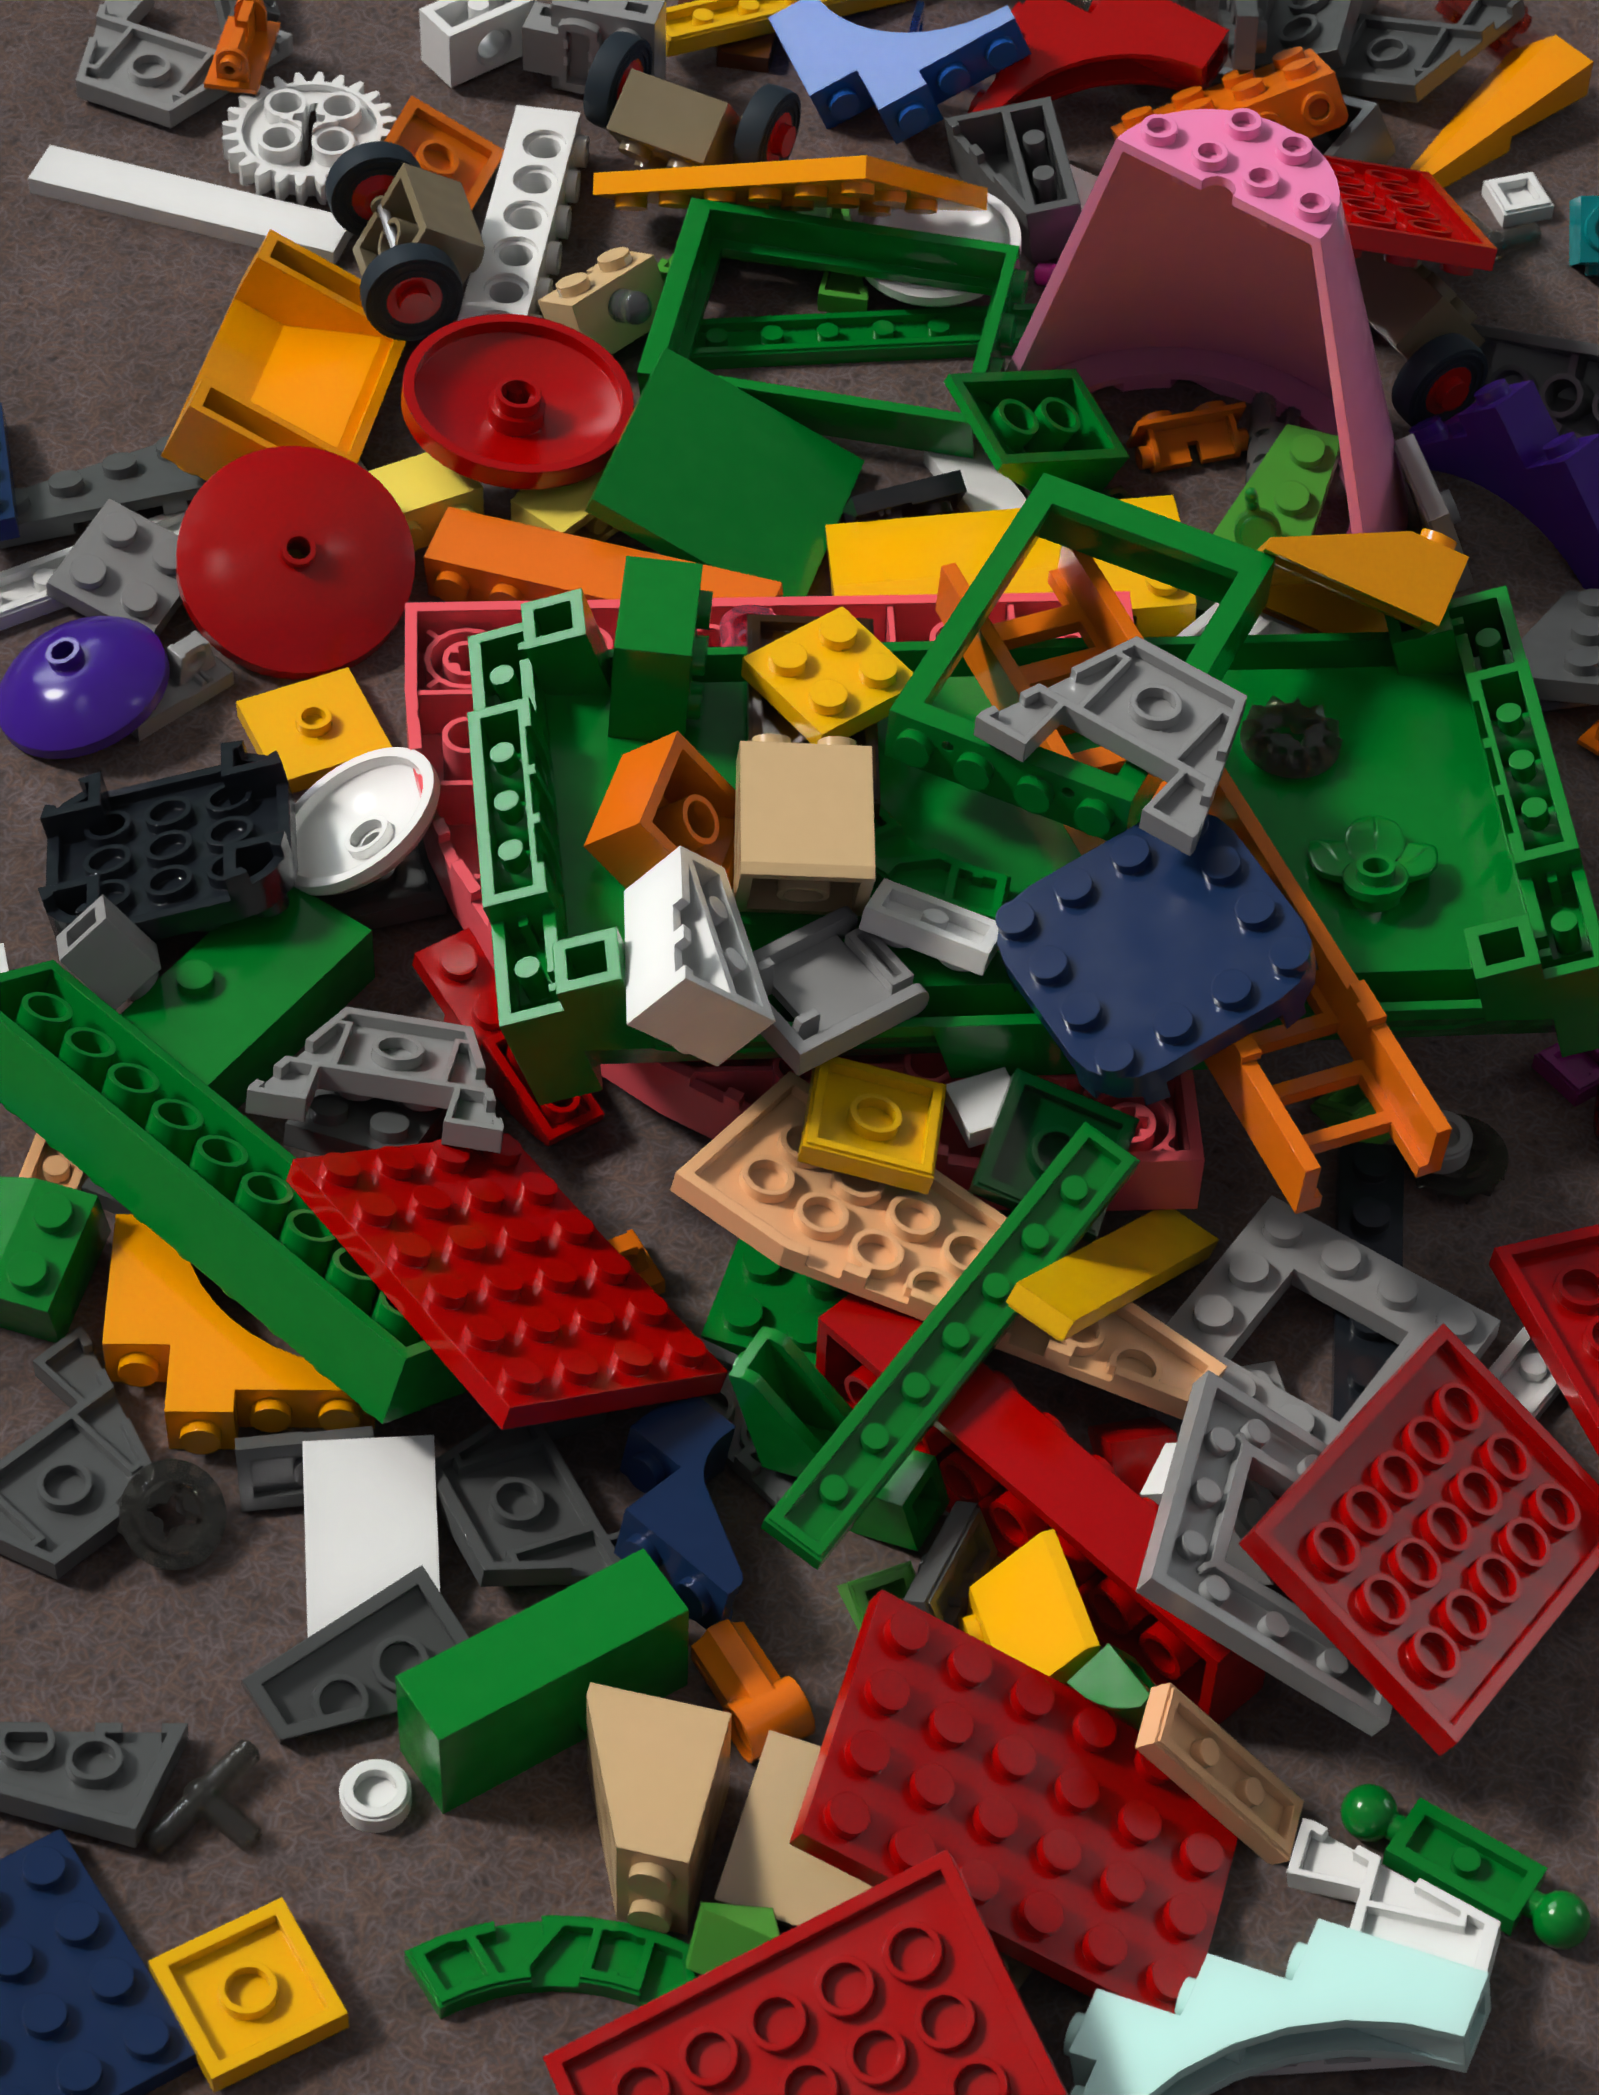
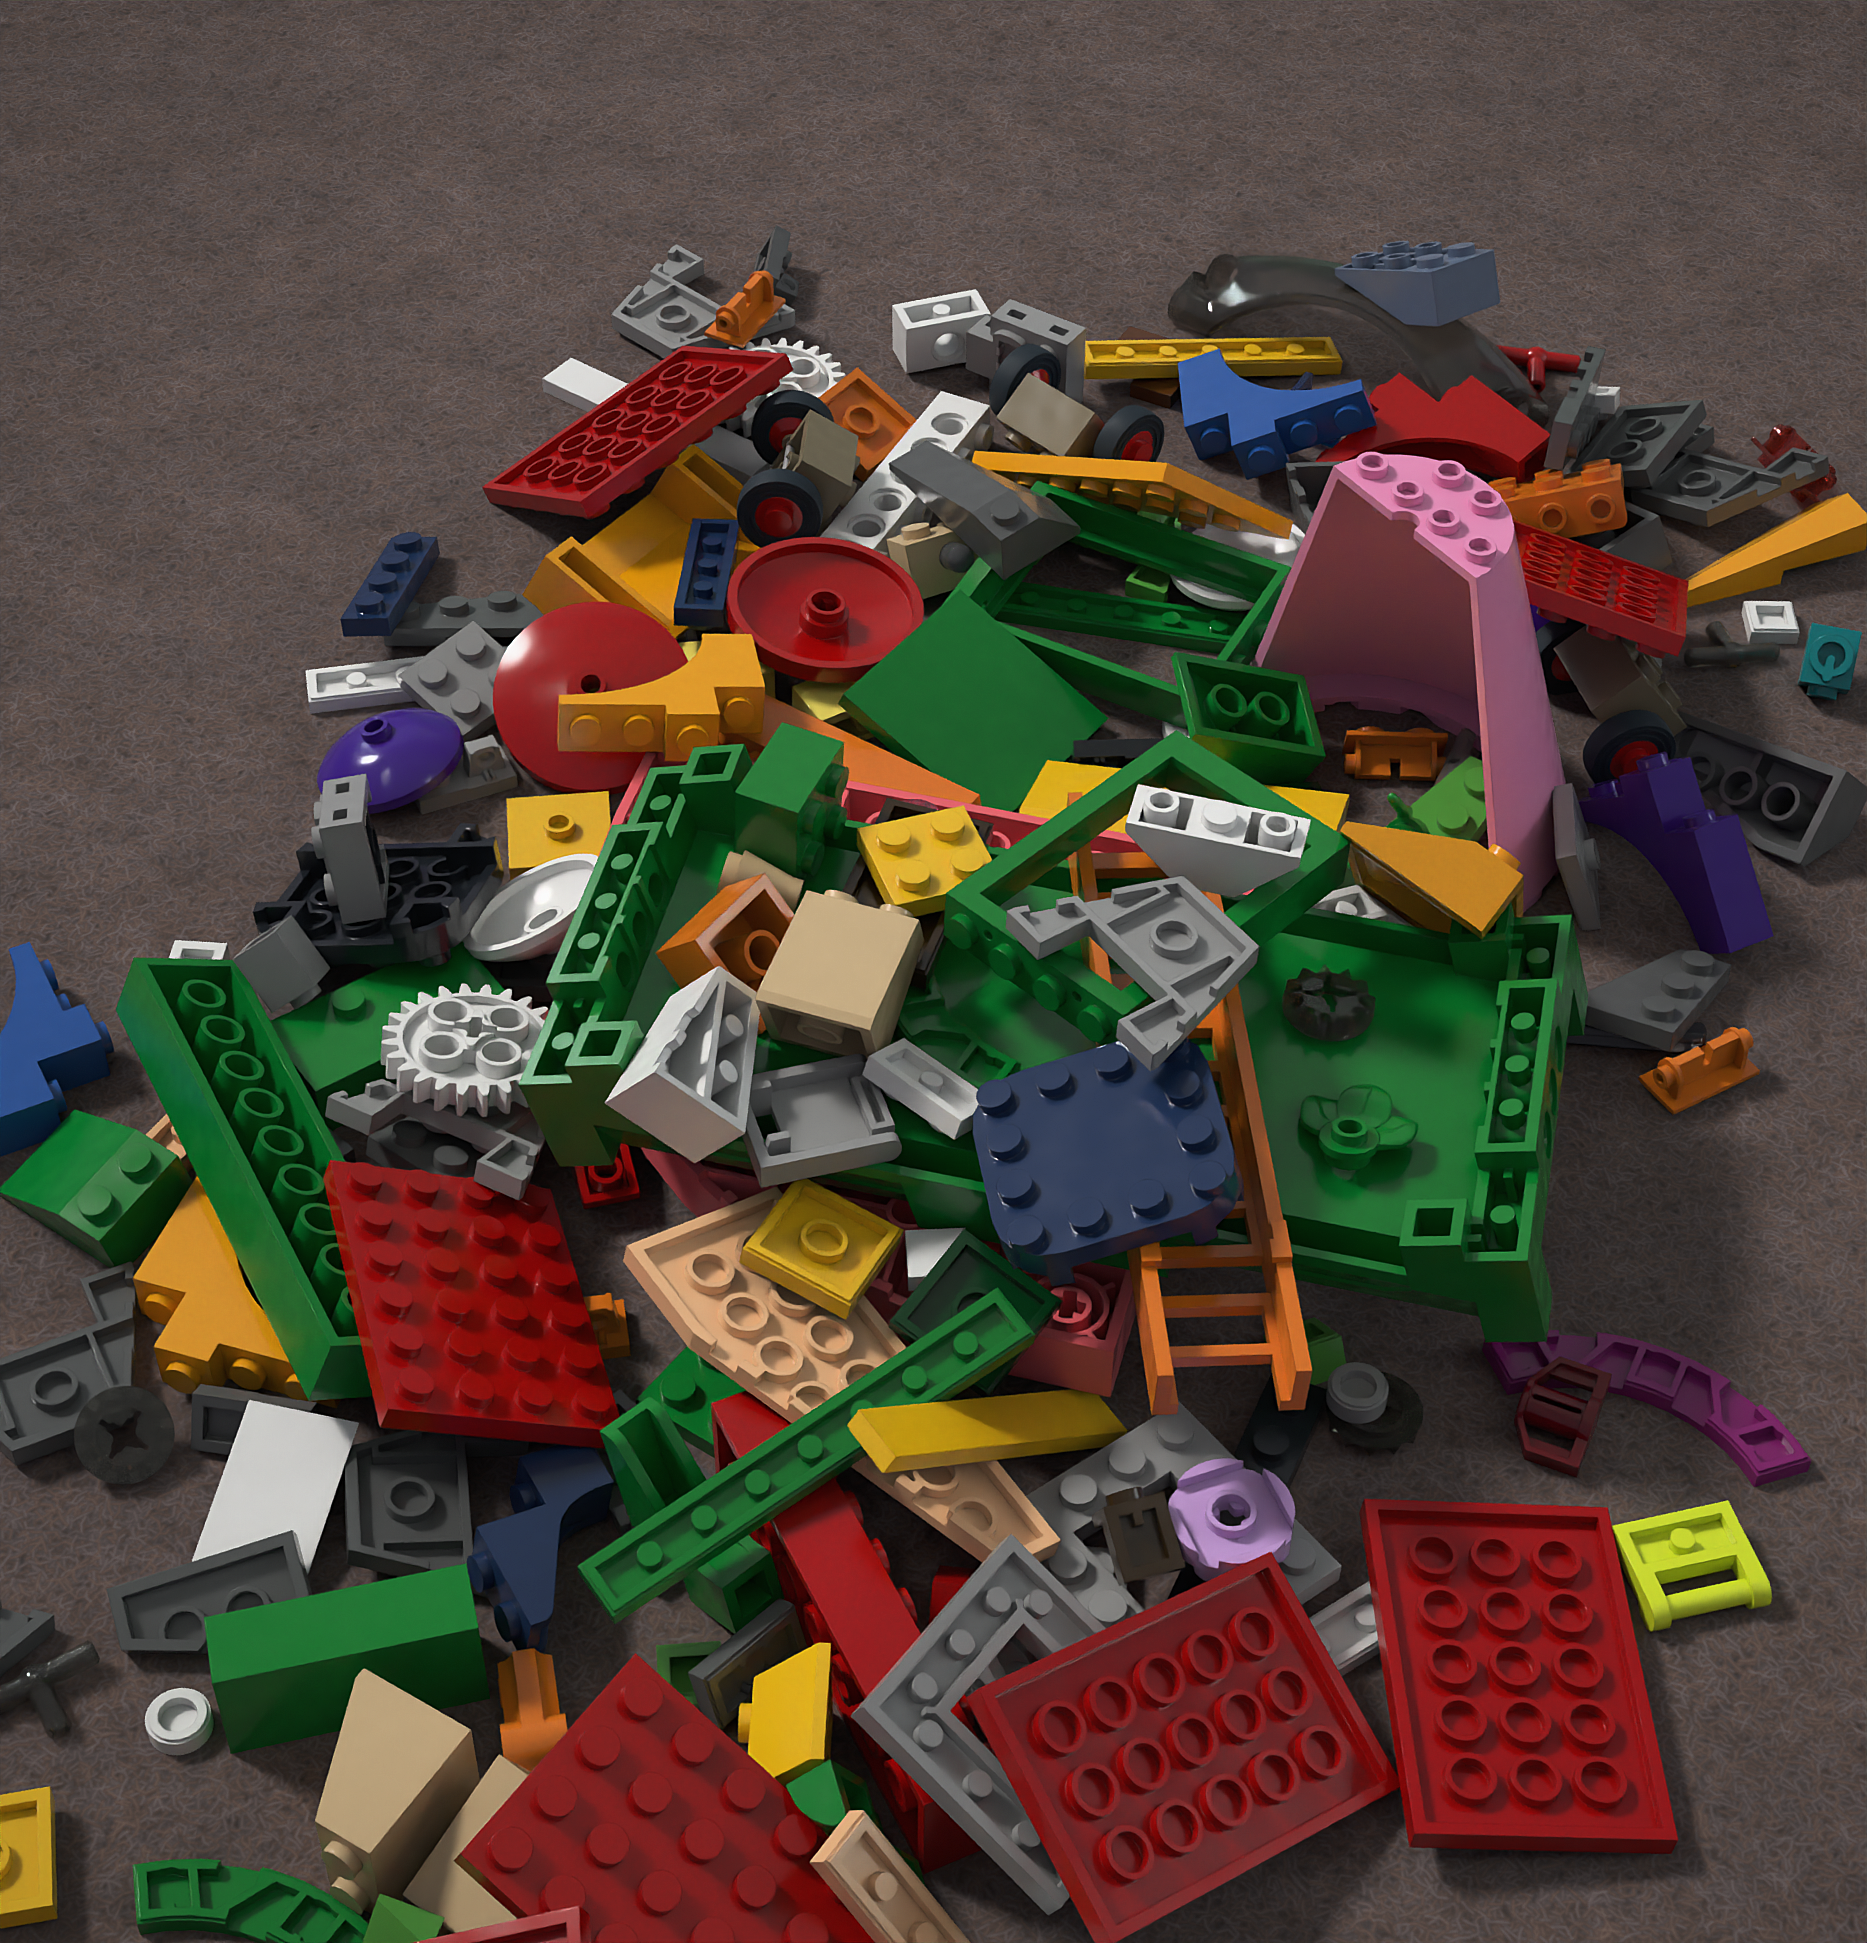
camera: 20 degrees right, 5 degrees down
(131, 801) = (350, 850): none -> light grey piece
(194, 225) = (638, 430): none -> red plate
(357, 384) = (706, 573): none -> dark blue plate
(371, 999) = (462, 1048): none -> white gear
(429, 562) = (671, 715): none -> light orange arch
(636, 729) = (745, 866): none -> tan cone
(656, 247) = (989, 512): none -> dark grey wedge
(1156, 590) = (1215, 842): none -> white slope
(1304, 1340) = (1139, 1535): none -> dark brown bracket
(1378, 1333) = (1227, 1486): none -> lavender plate

